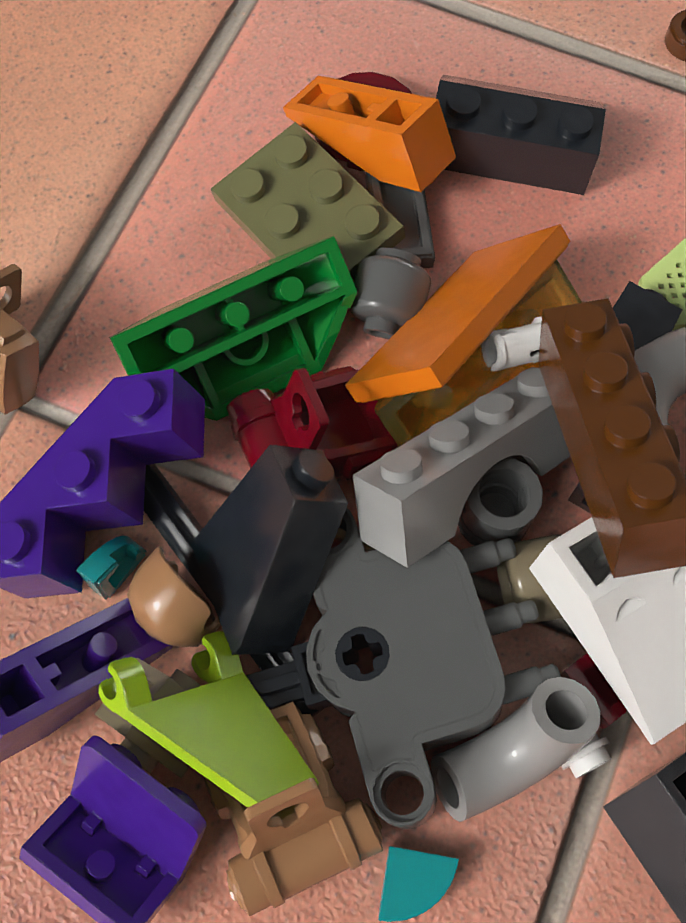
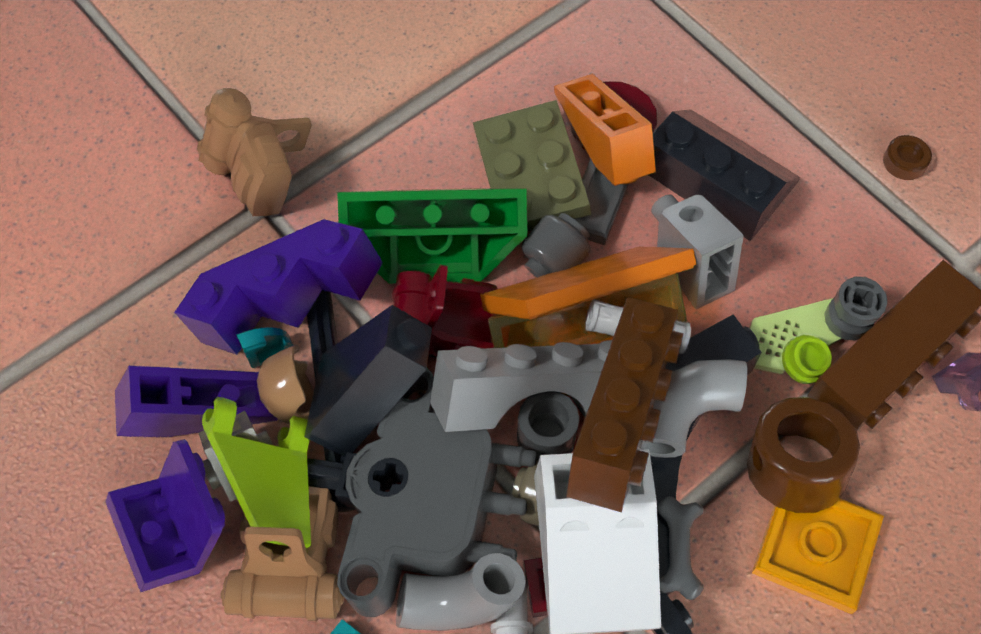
camera: 30 degrees right, 5 degrees down
(543, 198) = (715, 244): none -> light grey torso

